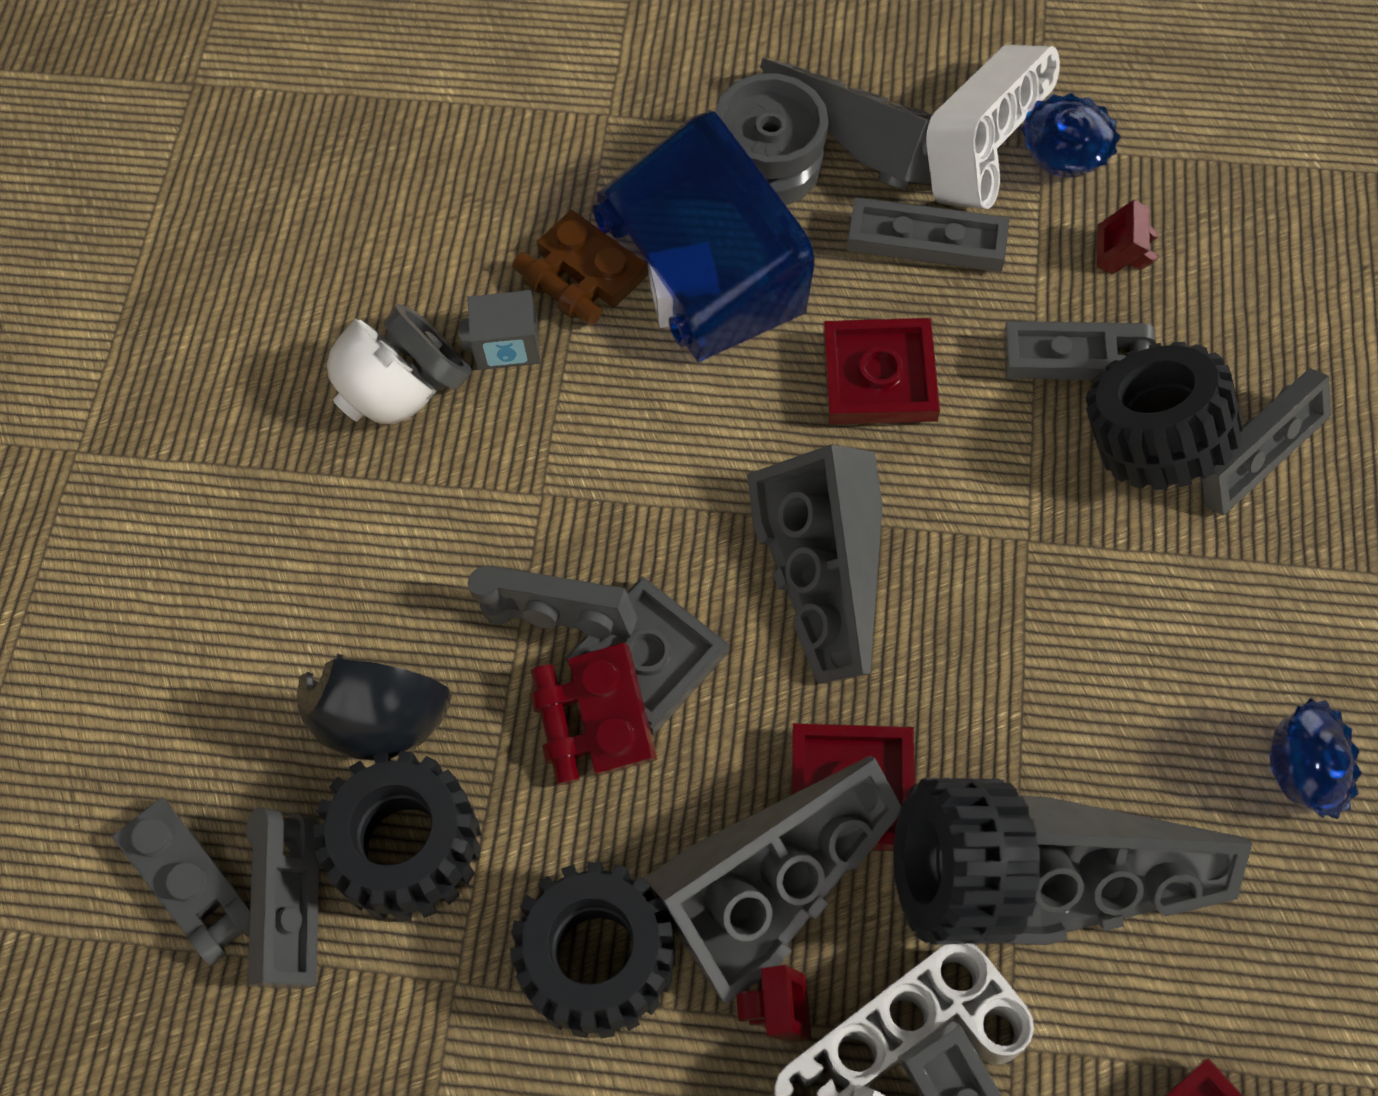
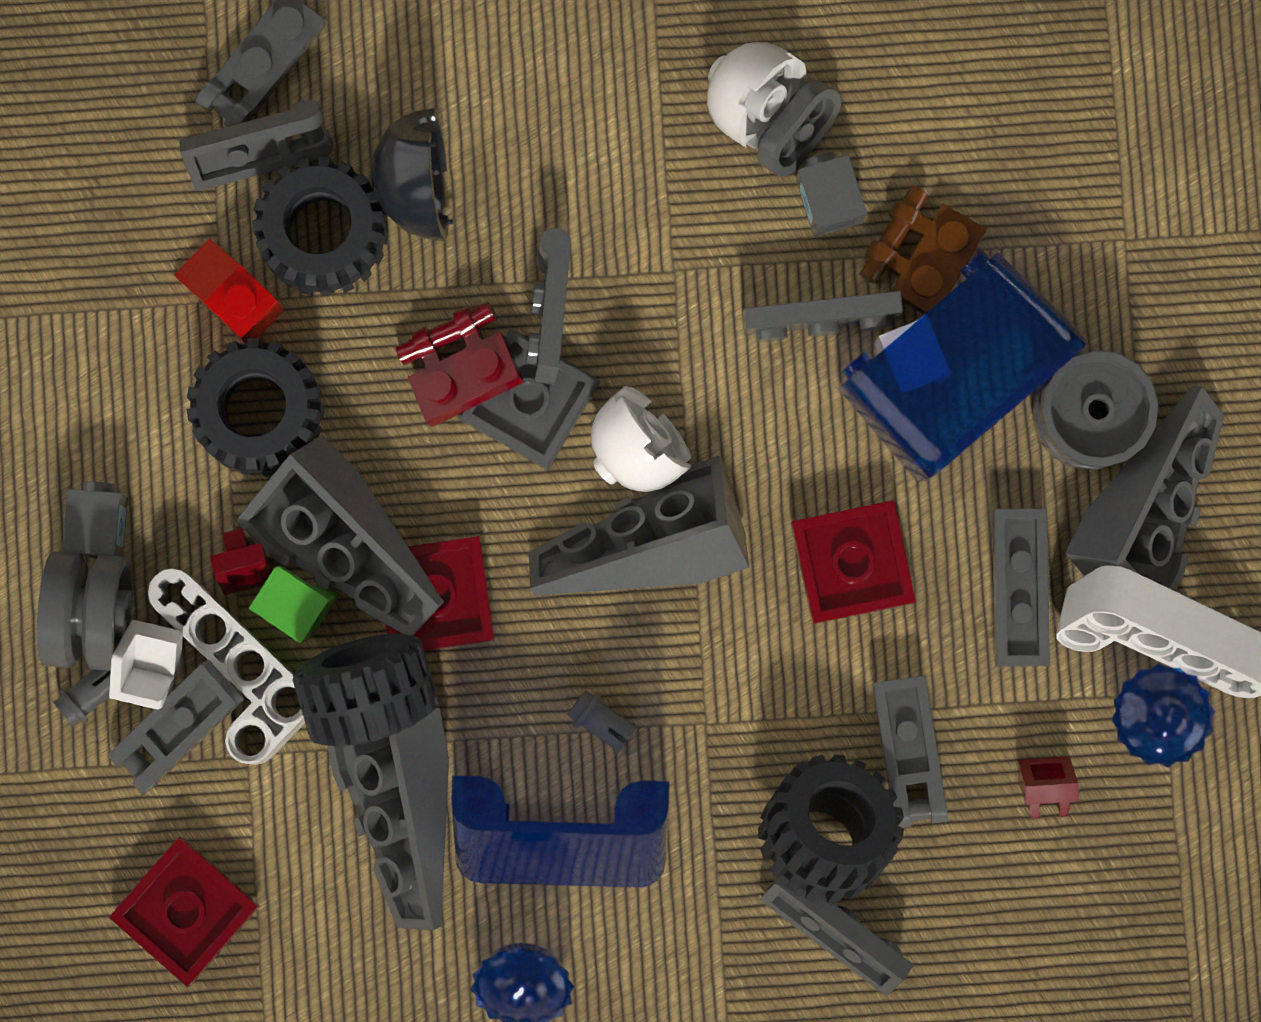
camera: 75 degrees right, 20 degrees up
(445, 963) = (229, 291): none -> red slope
(623, 357) = (822, 316): none -> dark grey plate
(722, 544) = (636, 445): none -> white cylinder
(841, 945) = (293, 604): none -> bright green panel
(1007, 643) = (601, 720): none -> dark grey pin
(1145, 751) = (560, 853): none -> clear blue windscreen

